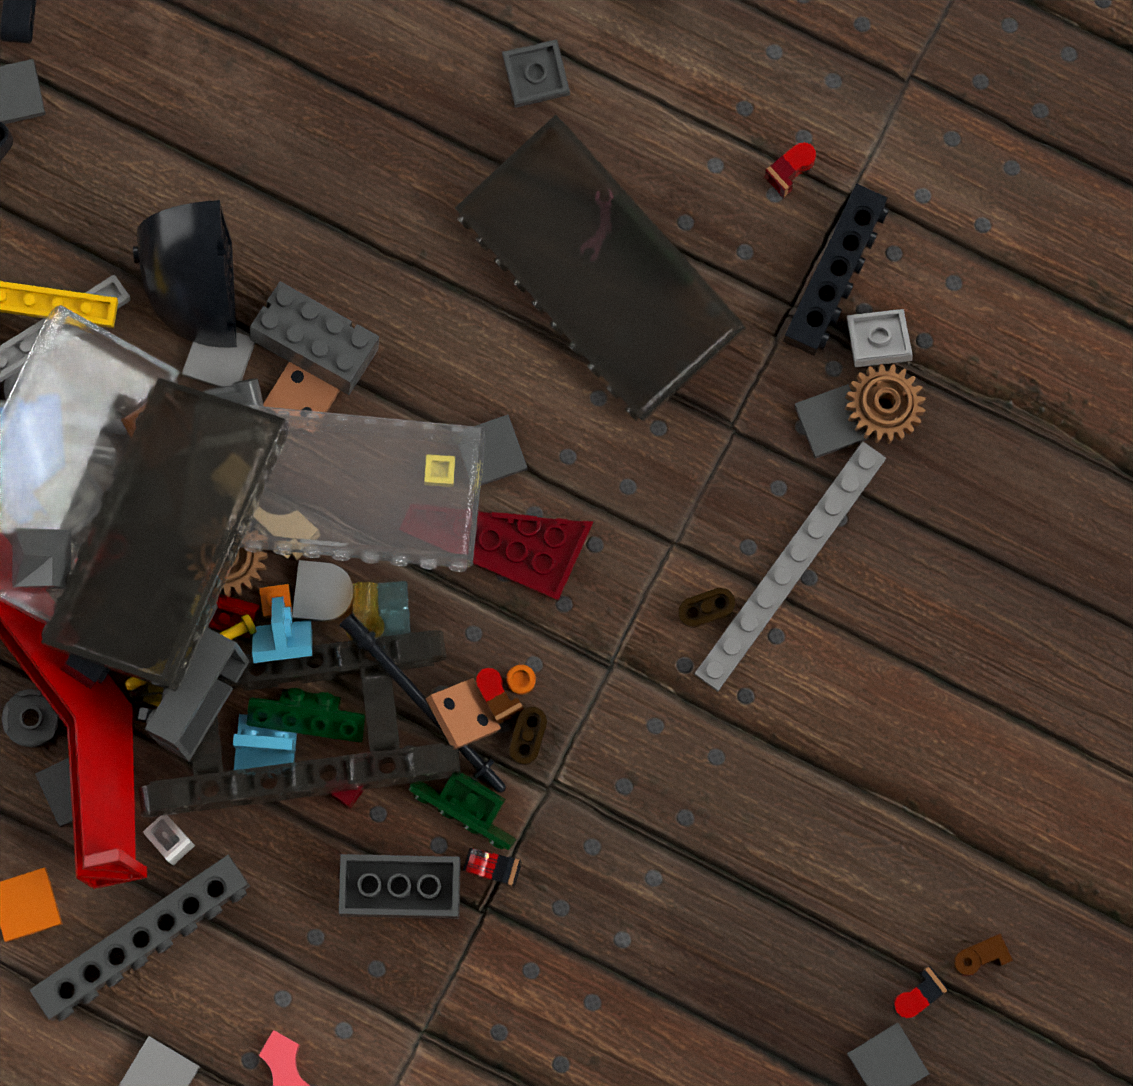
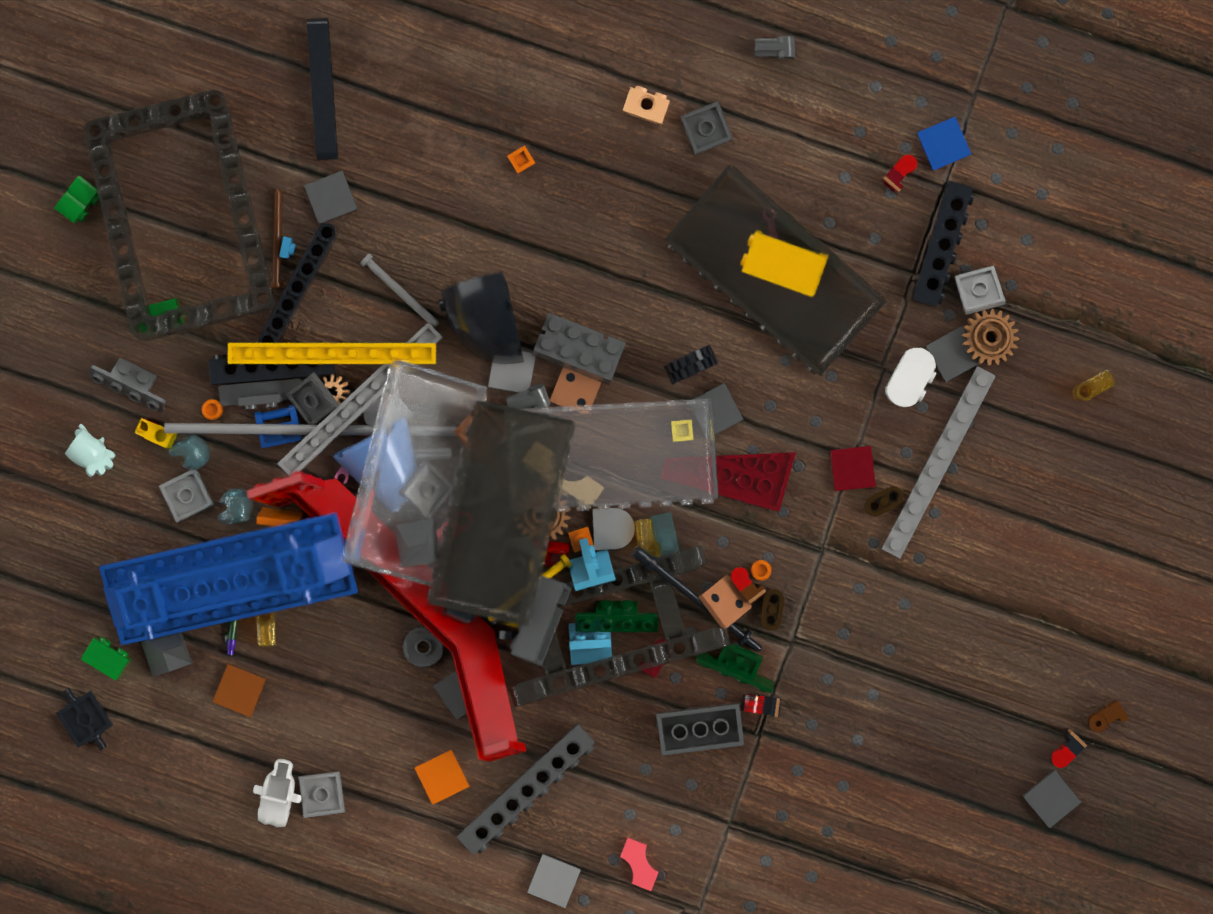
camera: 10 degrees left, 10 degrees up
(45, 183) = (398, 290): none -> light grey bar
(168, 839) = (533, 718): white slope -> none
(277, 78) = (521, 159): none -> orange plate
(464, 378) = (690, 364): none -> black bush
(468, 44) = (655, 114): none -> light nougat brick
(612, 254) = (783, 263): none -> yellow panel
(669, 557) = (852, 468): none -> dark red tile
(767, 443) = (911, 377): none -> white brick
(857, 138) = (944, 143): none -> blue tile
(1022, 491) = (1094, 385): none -> clear yellow piece

